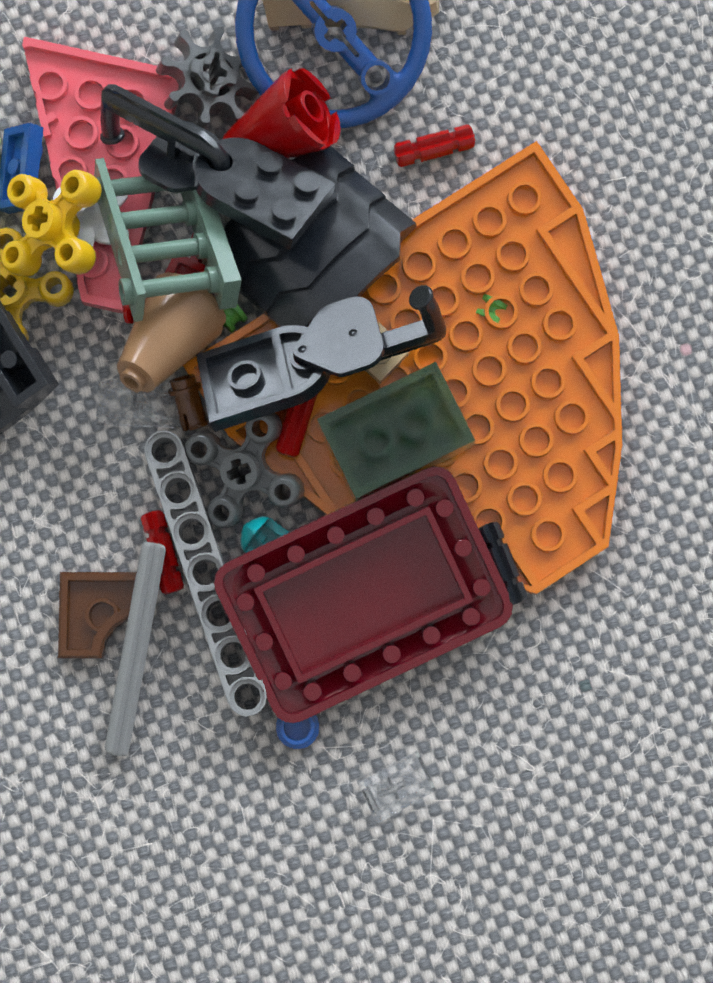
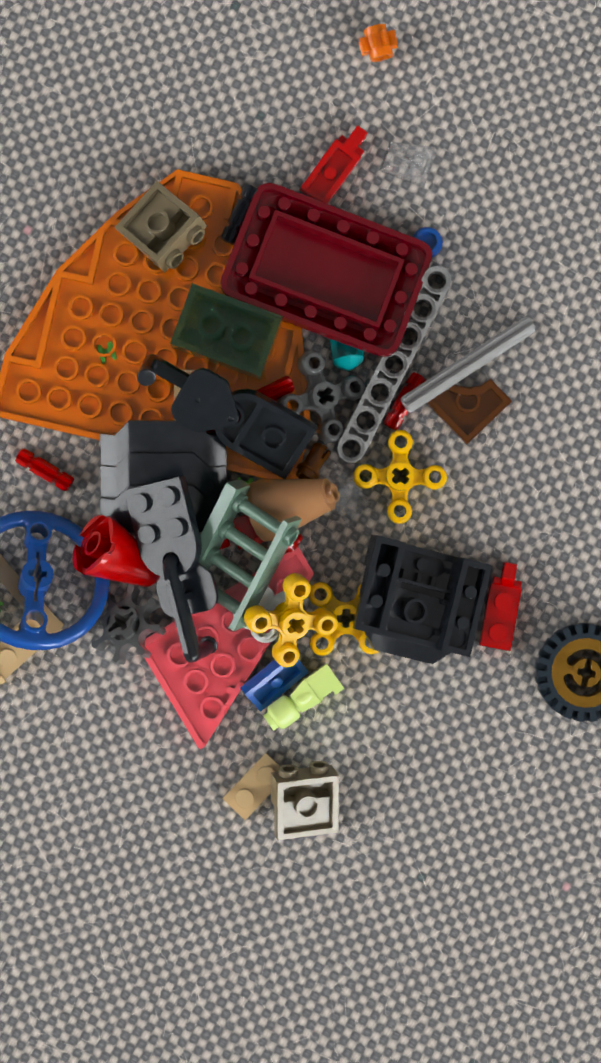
camera: 130 degrees left, 5 degrees up
(81, 462) = (400, 490): none -> yellow gear
(461, 706) = (335, 167): none -> red hinge
(546, 874) = (378, 42): none -> orange gear
(562, 471) = (162, 227): none -> dark tan plate

